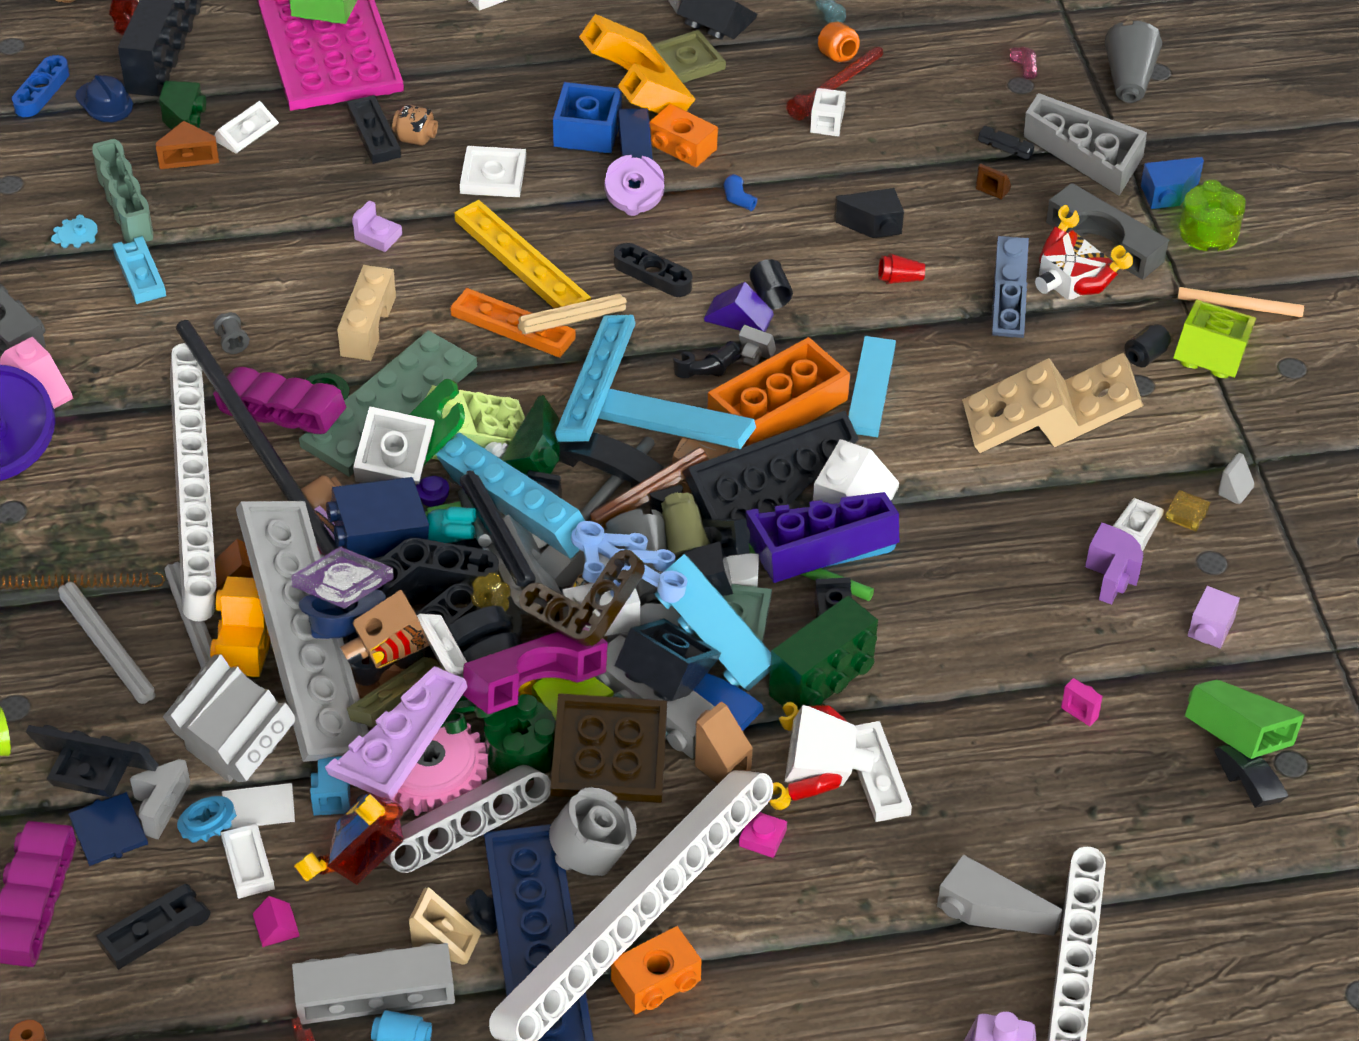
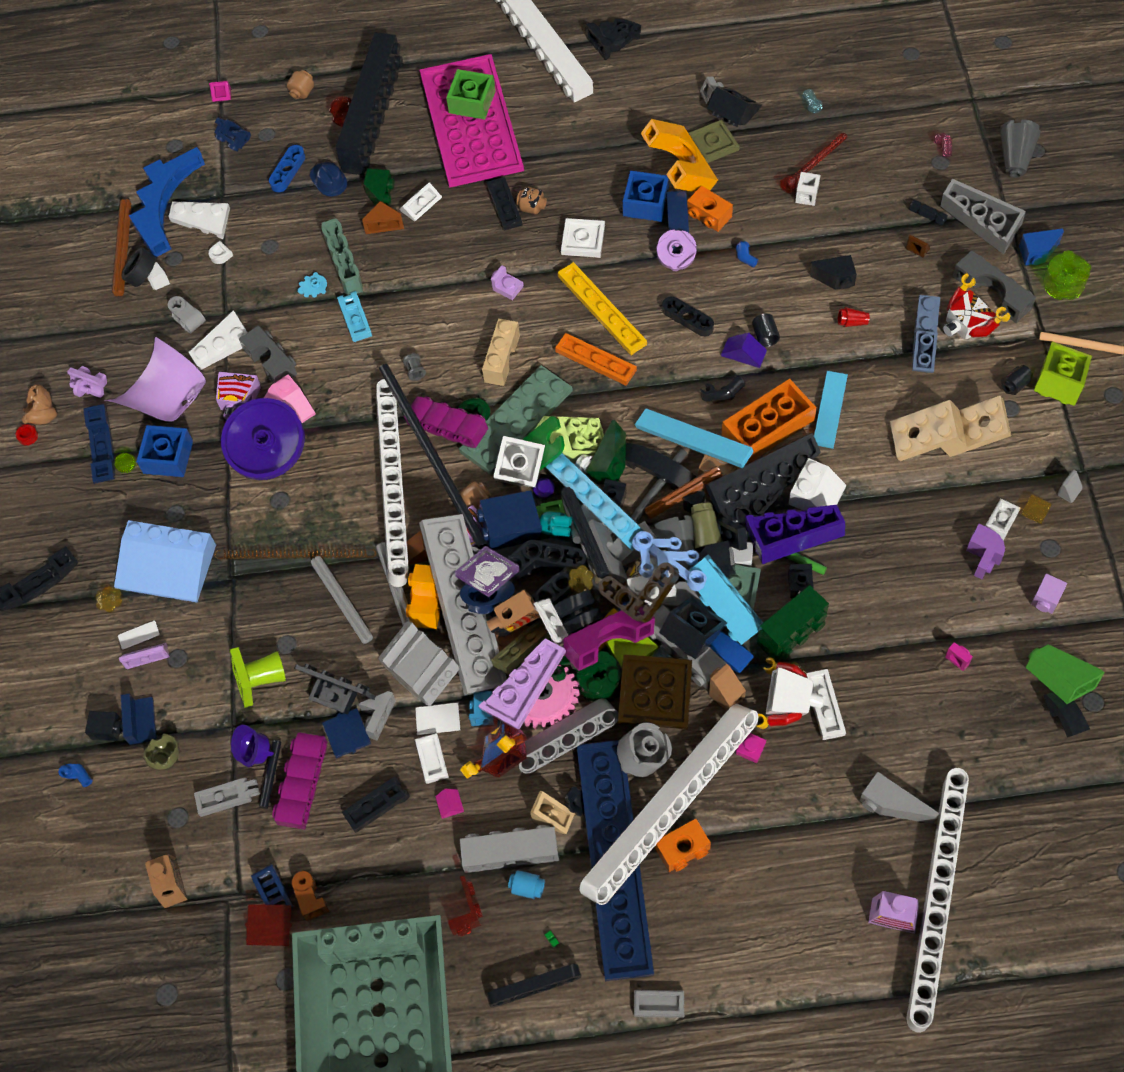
camera: 10 degrees right, 15 degrees up
(194, 820) = (401, 725): dark azure gear -> none
(571, 313) = (634, 354): tan axle -> none
(595, 378) = (649, 405): medium azure tile -> none
(756, 345) = (754, 378): light grey tile -> none
(838, 42) = (816, 130): orange head -> none

